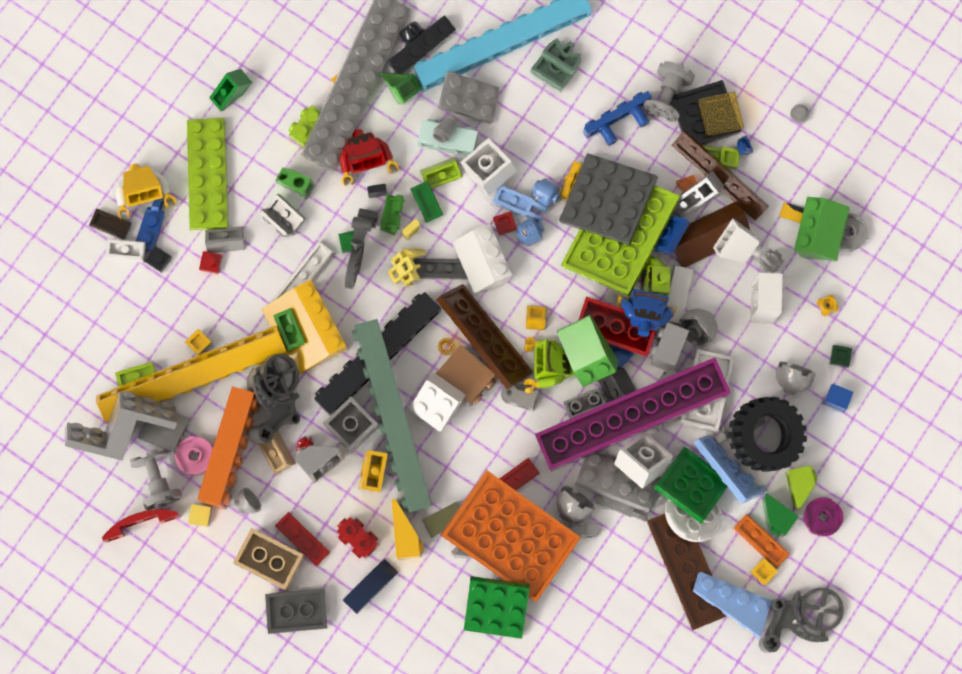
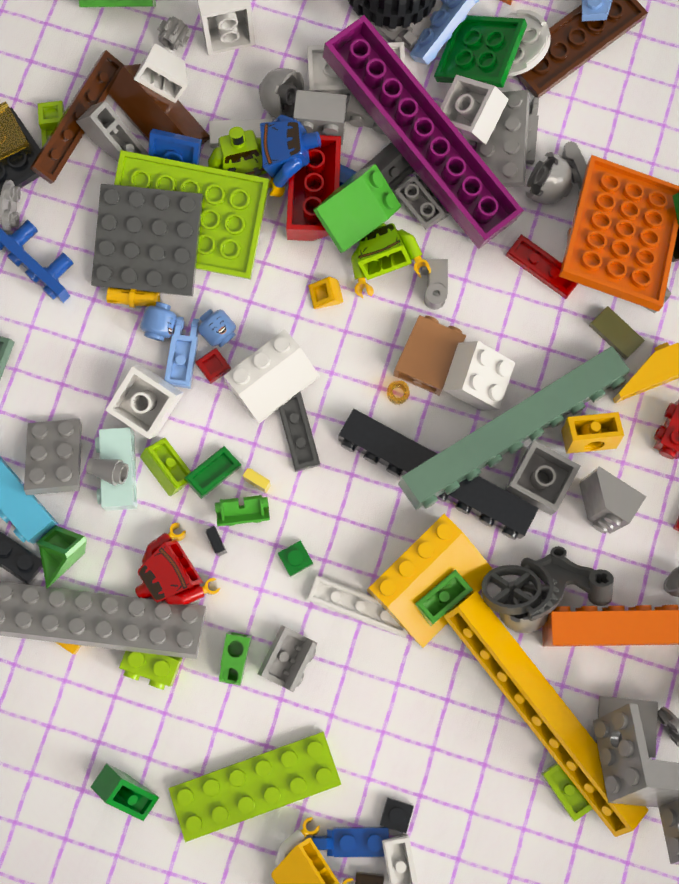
camera: 110 degrees left, 0 degrees up
(184, 453) = (662, 673): bright pink plate -> none
(198, 342) = (495, 718): yellow plate -> none
(210, 262) = (379, 739): red plate -> none
(224, 239) = (341, 730): light grey slope -> none
(277, 454) = (611, 558): tan slope -> none
(304, 441) = (583, 532): red plate -> none
(362, 224) = (278, 535): dark grey piece -> none
(406, 257) = (297, 472): light yellow piece -> none
(484, 336) = (372, 344): reddish brown plate -> none
(685, 183) = (99, 158): clear orange tile -> none
(744, 146) = (29, 101): blue tile -> none
(791, 212) = (102, 25): yellow sticker -> none

